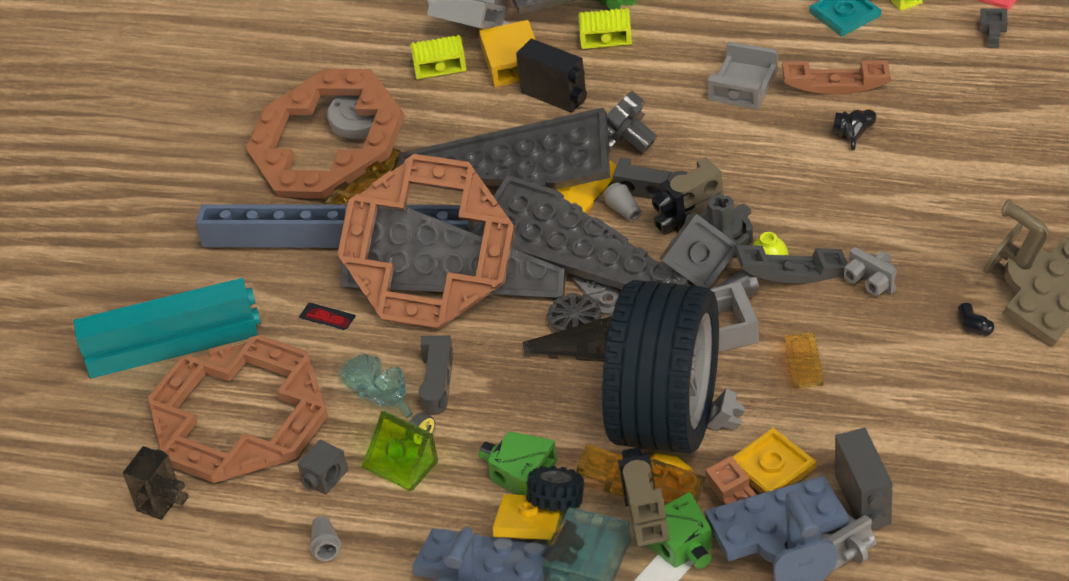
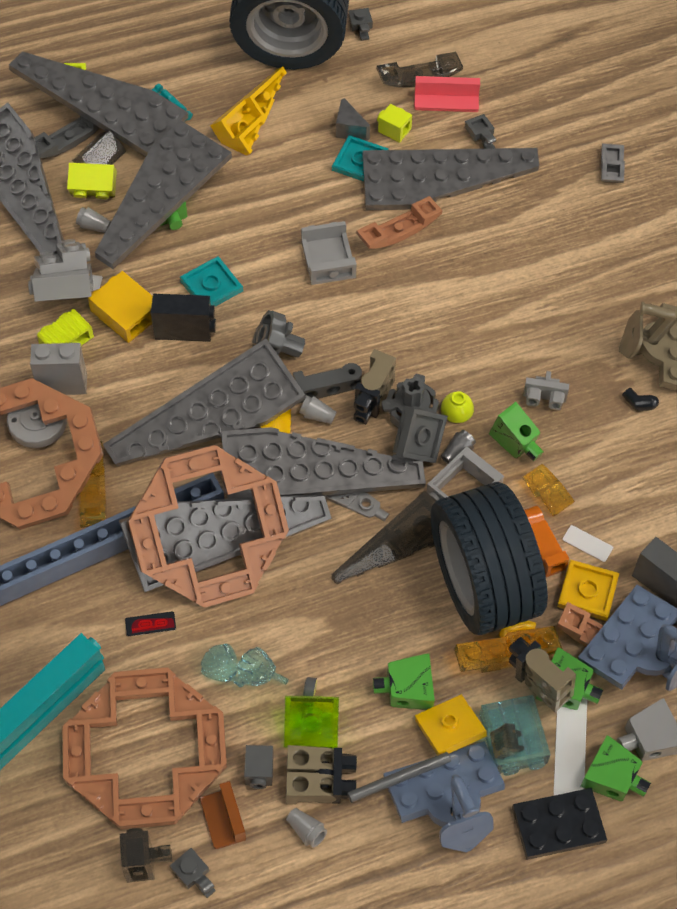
camera: 40 degrees left, 15 degrees up
(195, 526) = (192, 871): none -> dark grey plate
(260, 496) = (223, 817): none -> dark orange panel
(369, 499) = (316, 774): none -> dark tan hips
(405, 74) = (60, 367): none -> light grey brick
(433, 530) = (398, 777): none -> dark grey bar
(438, 355) = (286, 633): dark grey leg -> none
(555, 488) = (458, 693): black wheel -> none
(573, 314) = (351, 530): flat silver wheel -> none
(605, 28) = (186, 251): neon yellow brick -> none
(610, 65) = (212, 280): none -> teal tile
(758, 400) = (549, 548): none -> orange leg
(805, 300) = (516, 433): none -> bright green torso
(810, 427) = (587, 543): none -> white sticker
(820, 266) = (485, 413): dark grey slope -> none
(853, 124) = (442, 265): black animal -> none
(913, 45) = (406, 176): none -> flat silver wing

